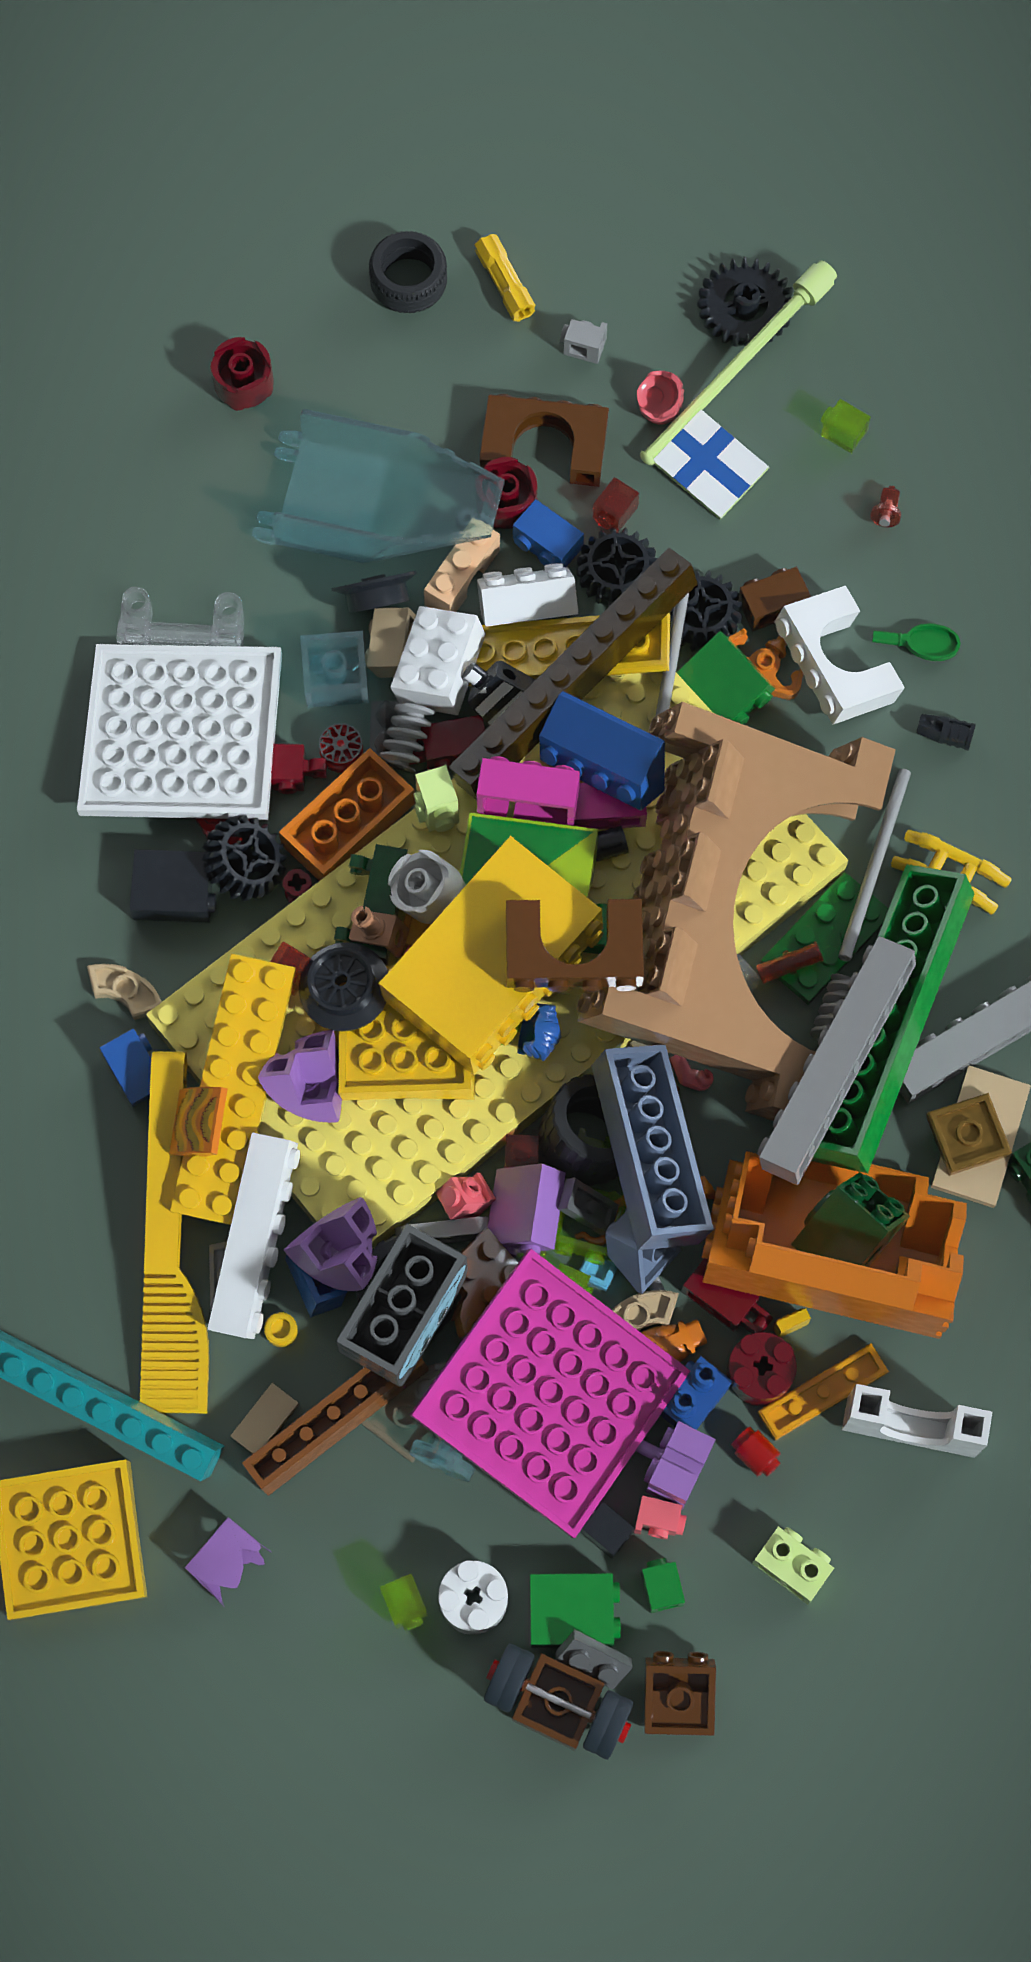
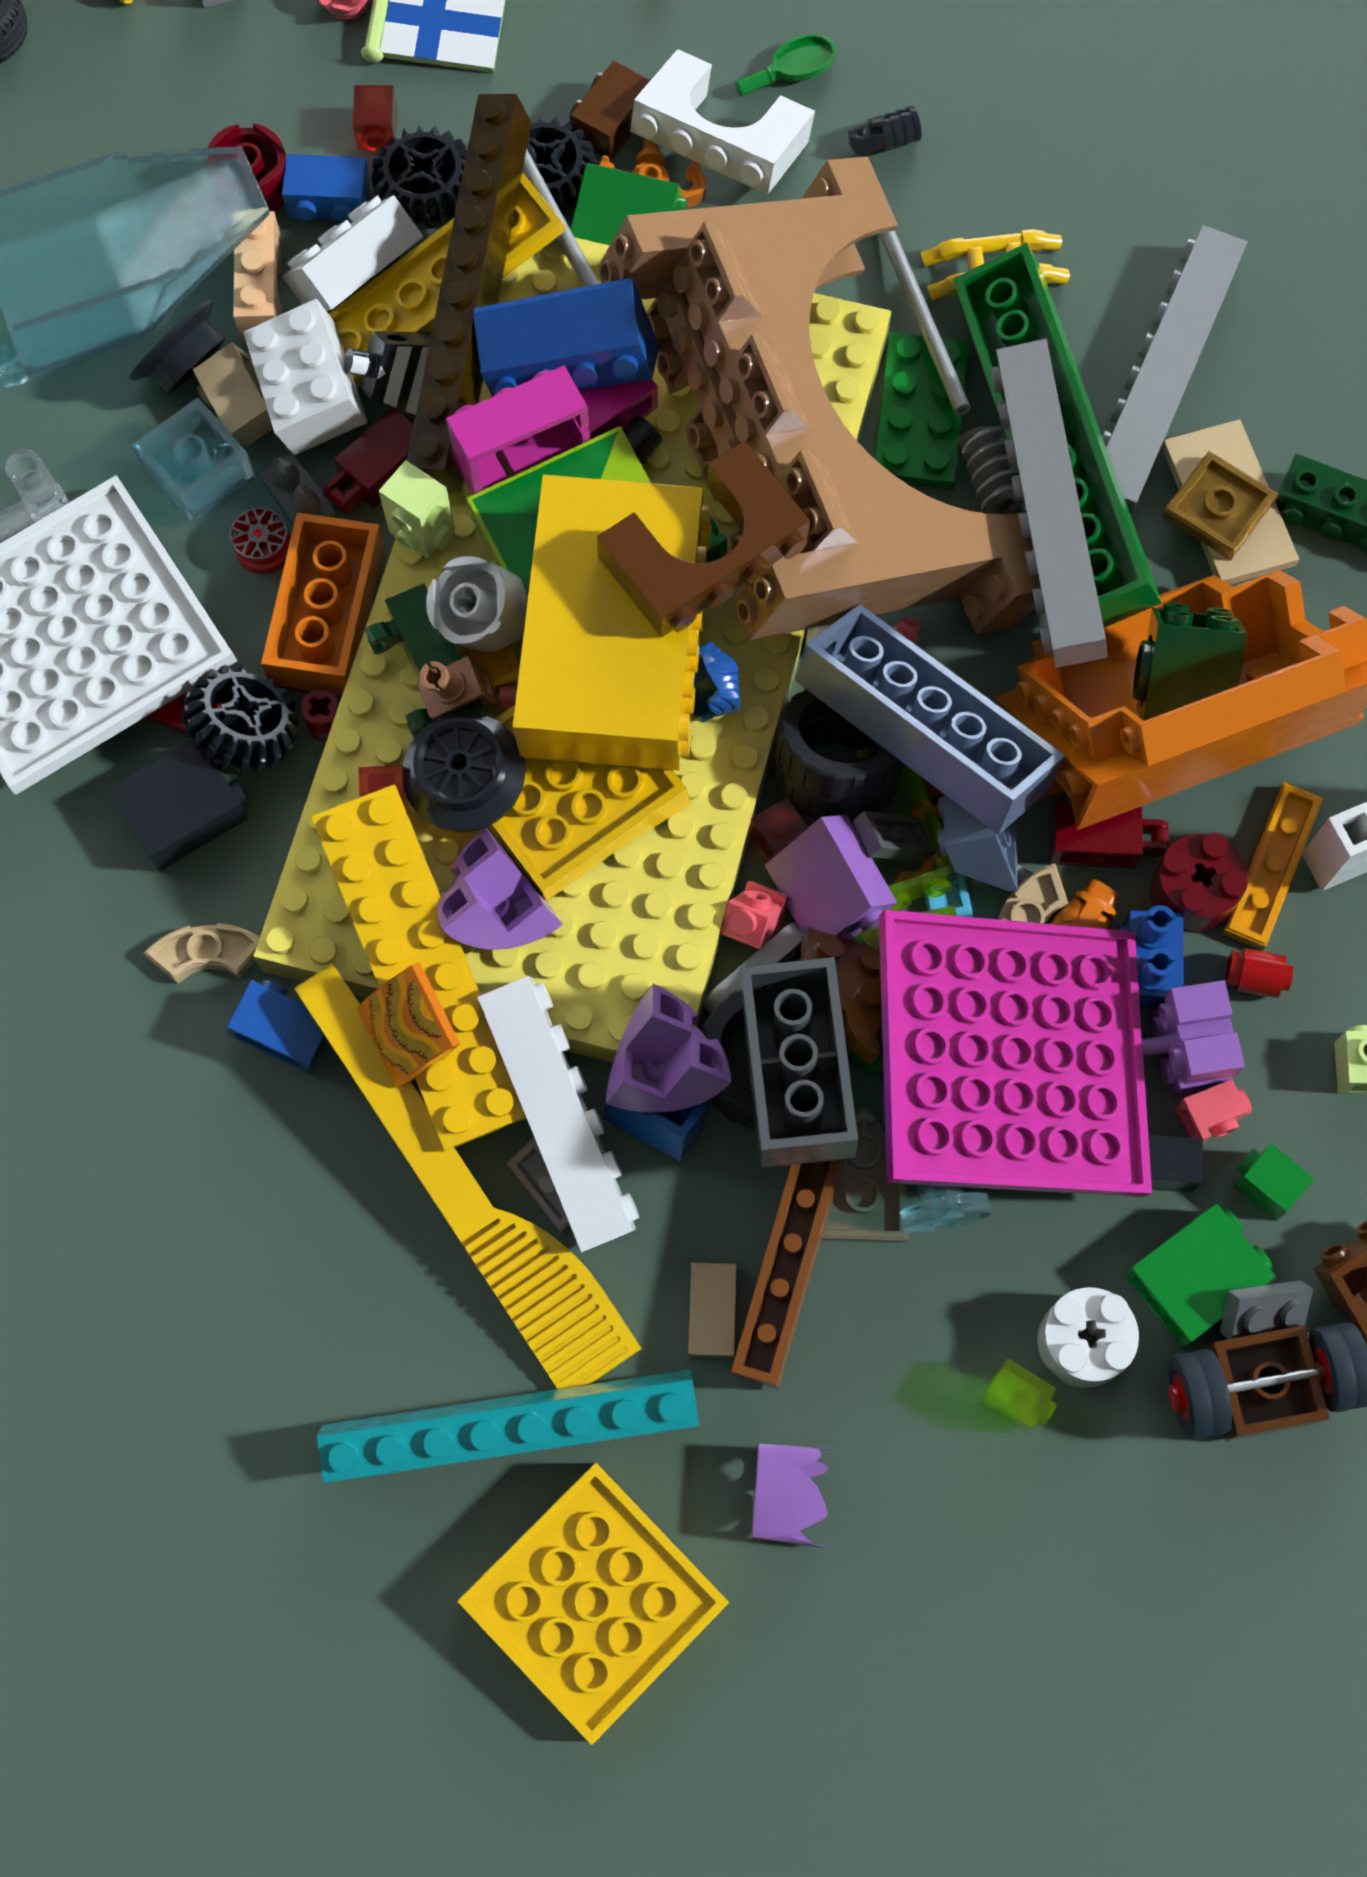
camera: 35 degrees left, 0 degrees up
(281, 1329) = (656, 1199): yellow tile -> none
(291, 767) = (224, 593): dark red brick -> none
(405, 735) = (325, 474): light grey piece -> none
(582, 424) = (274, 60): reddish brown arch -> none
(789, 962) = (912, 448): clear red pin -> none
(792, 1322) = (1190, 813): yellow tile -> none

